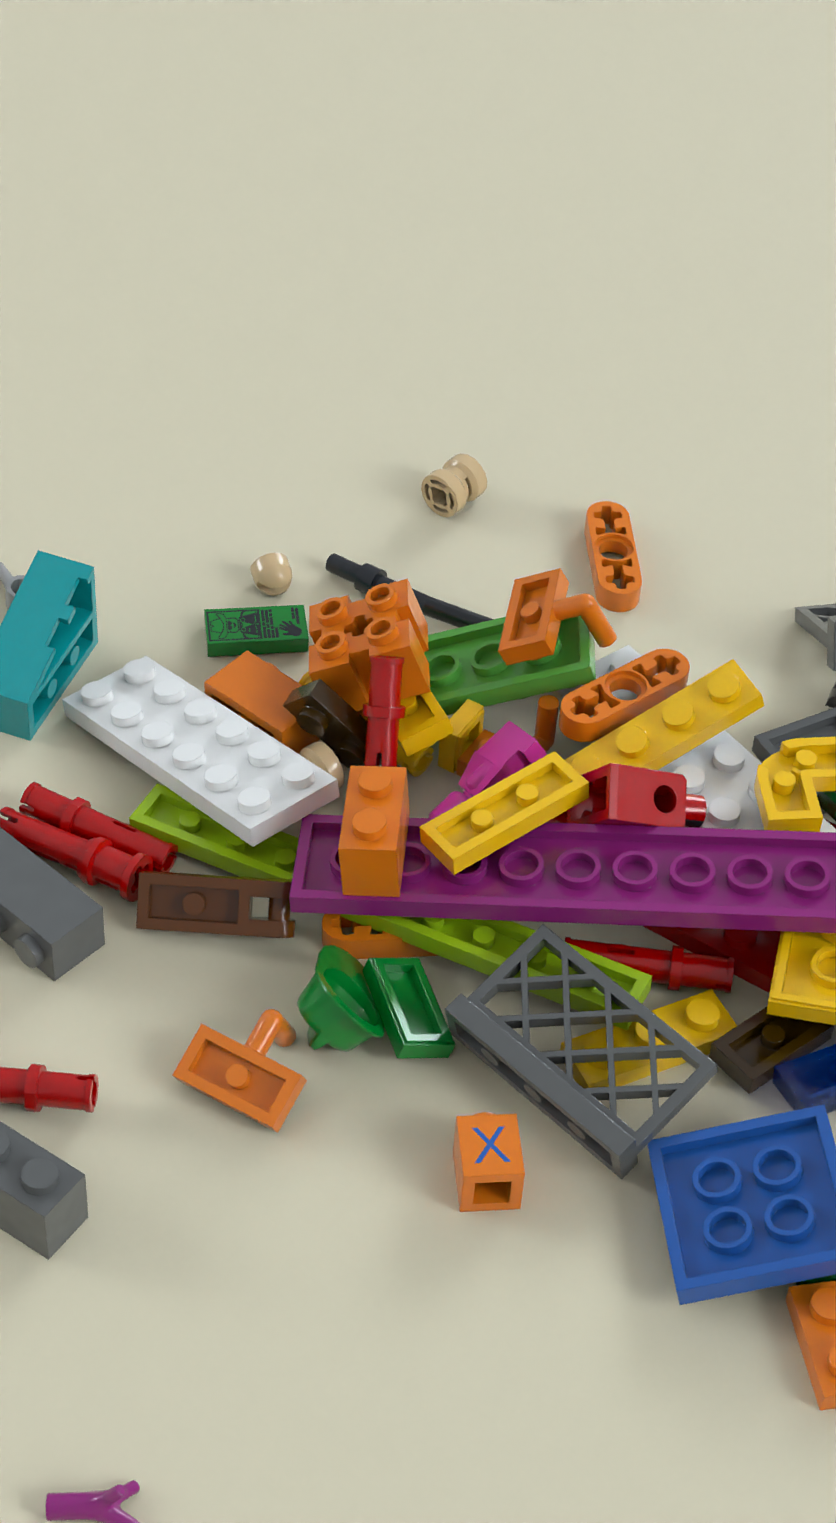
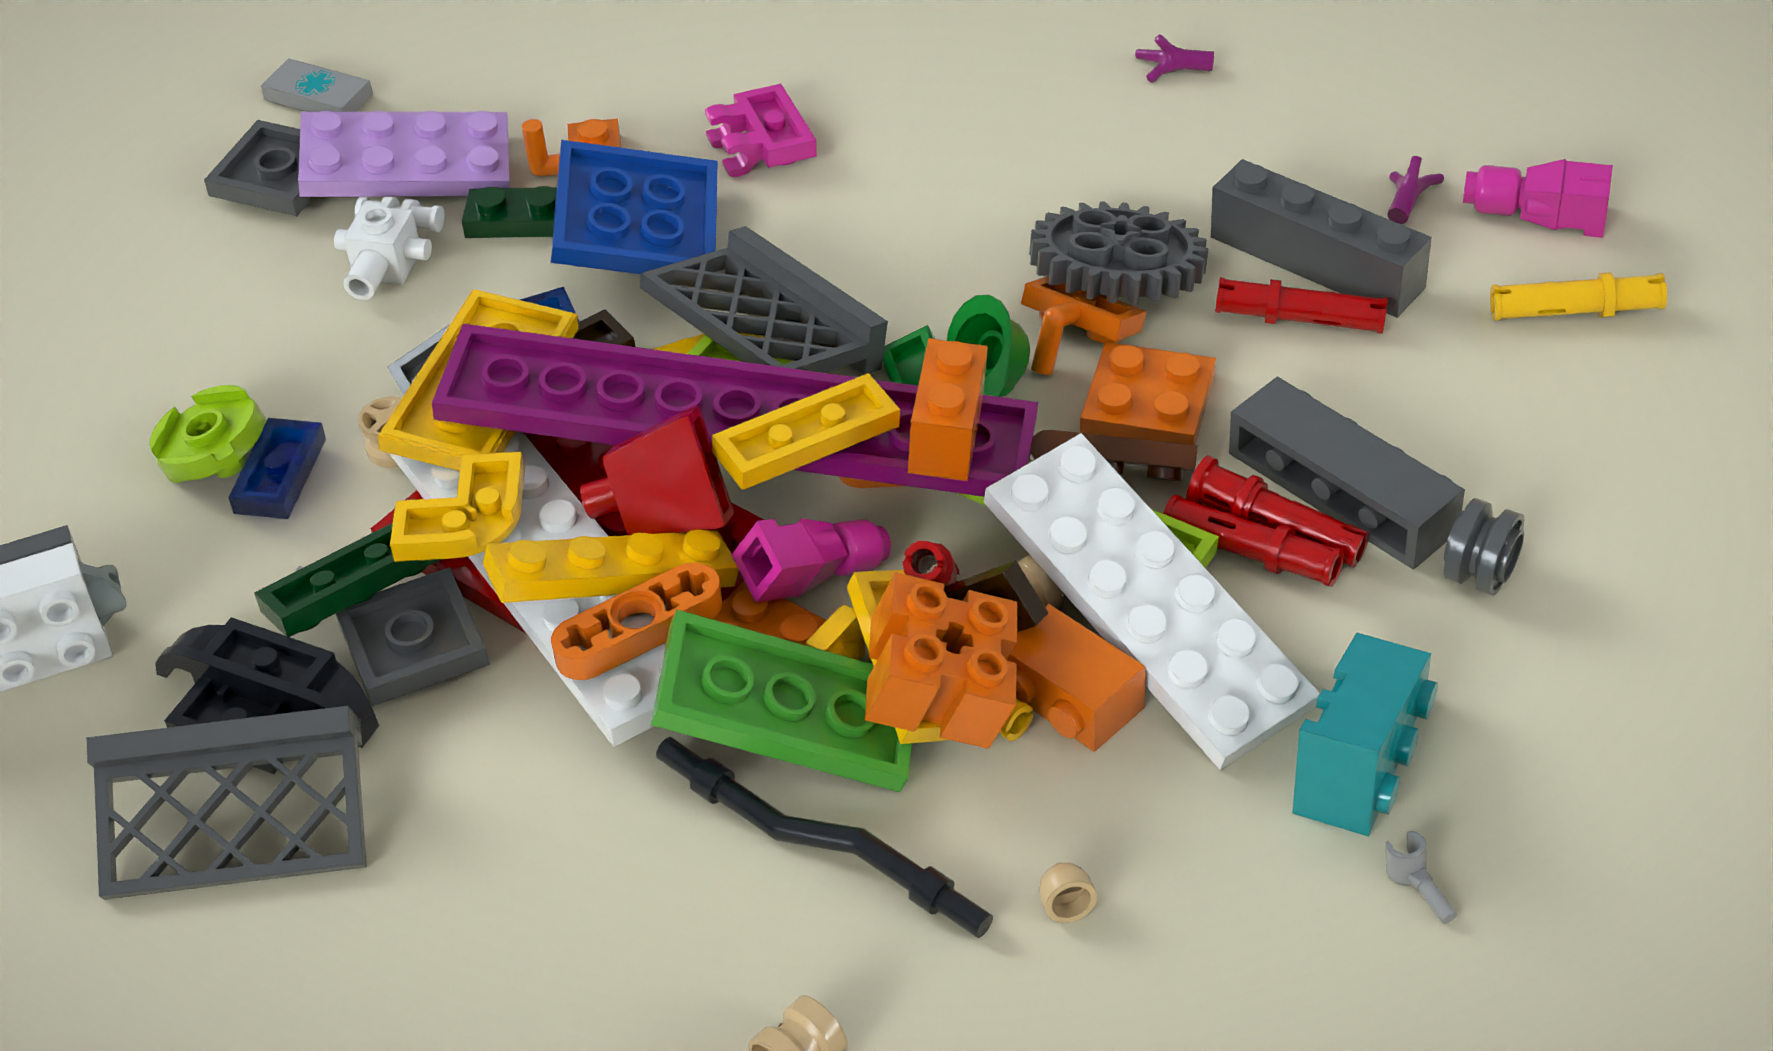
camera: 170 degrees left, 0 degrees up
(174, 989) = (1148, 394): none -> orange plate
(190, 1189) = (1118, 252): none -> dark grey gear
(256, 630) = (1086, 814): green tile -> none
(488, 1162) = (859, 249): orange brick -> none
(536, 614) = (728, 668): orange plate -> none
(605, 569) = (598, 969): orange beam -> none
(623, 1380) = (772, 126): none -> dark pink plate

